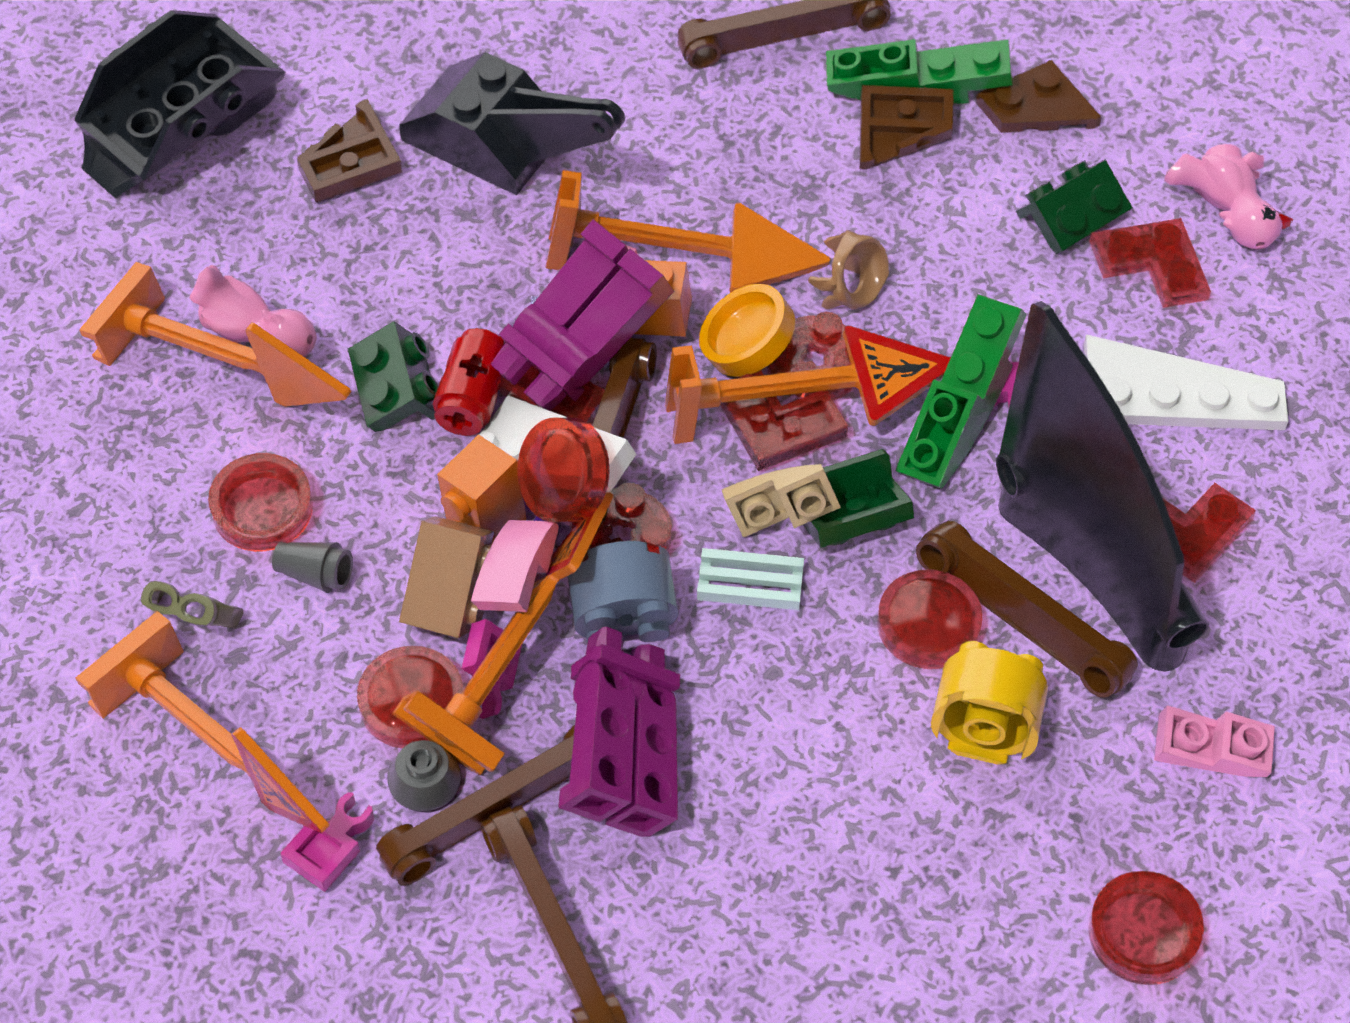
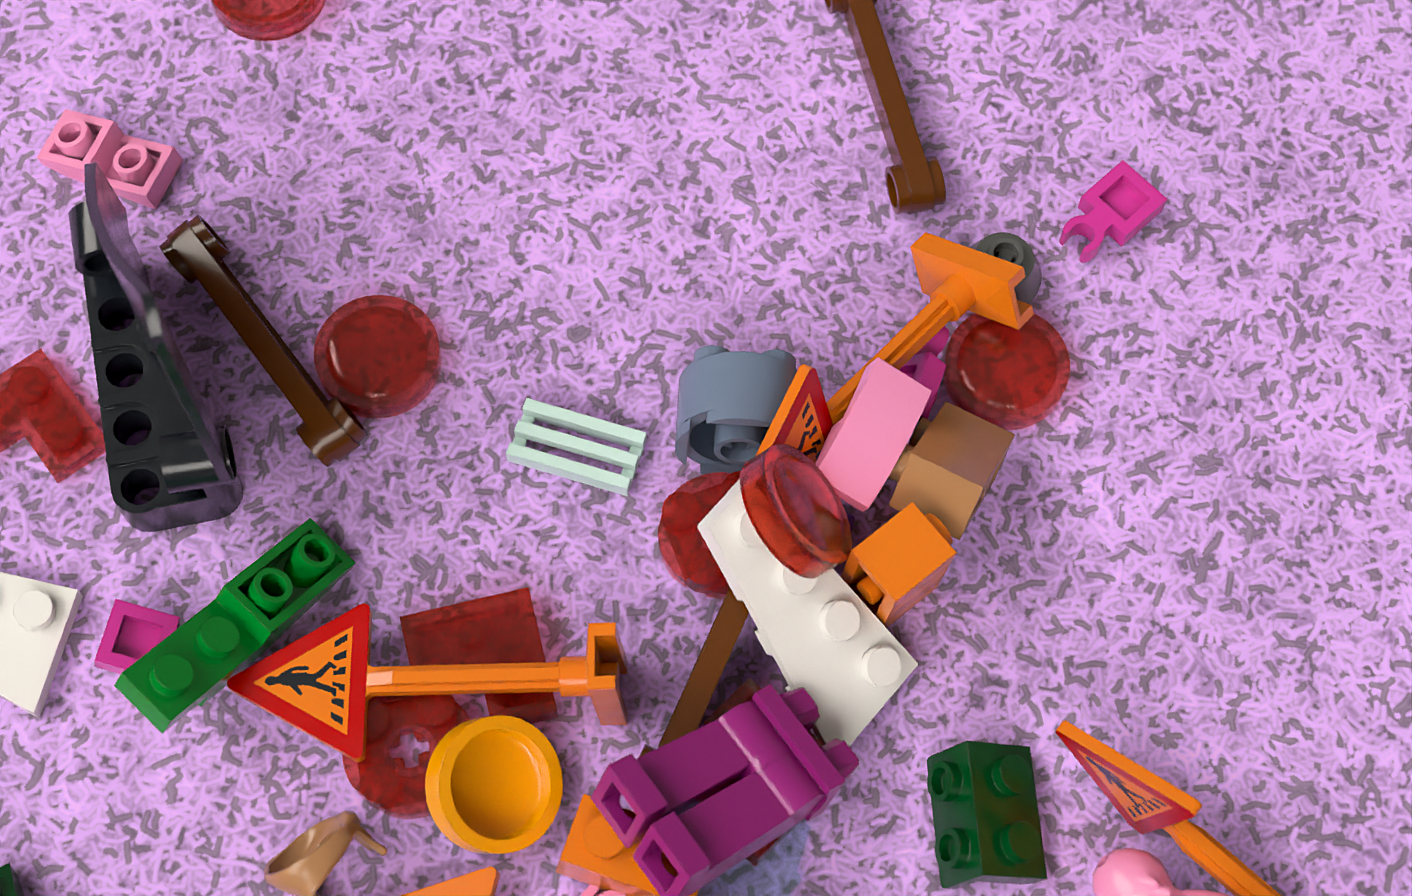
camera: 170 degrees left, 10 degrees up
(138, 666) = (1183, 250): orange piece -> none
(215, 612) = (1250, 482): olive cap -> none
(260, 501) = (1175, 656): clear red piece -> none
(314, 563) = (1111, 552): dark grey cone -> none
(410, 850) = (813, 260): reddish brown piece -> none
(467, 402) = (881, 814): red piece -> none
(623, 737) = (772, 242): magenta hips -> none
(790, 493) = (505, 503): tan slope -> none
(867, 500) = (425, 509): dark green bracket -> none
(990, 703) = (349, 207): yellow brick -> none

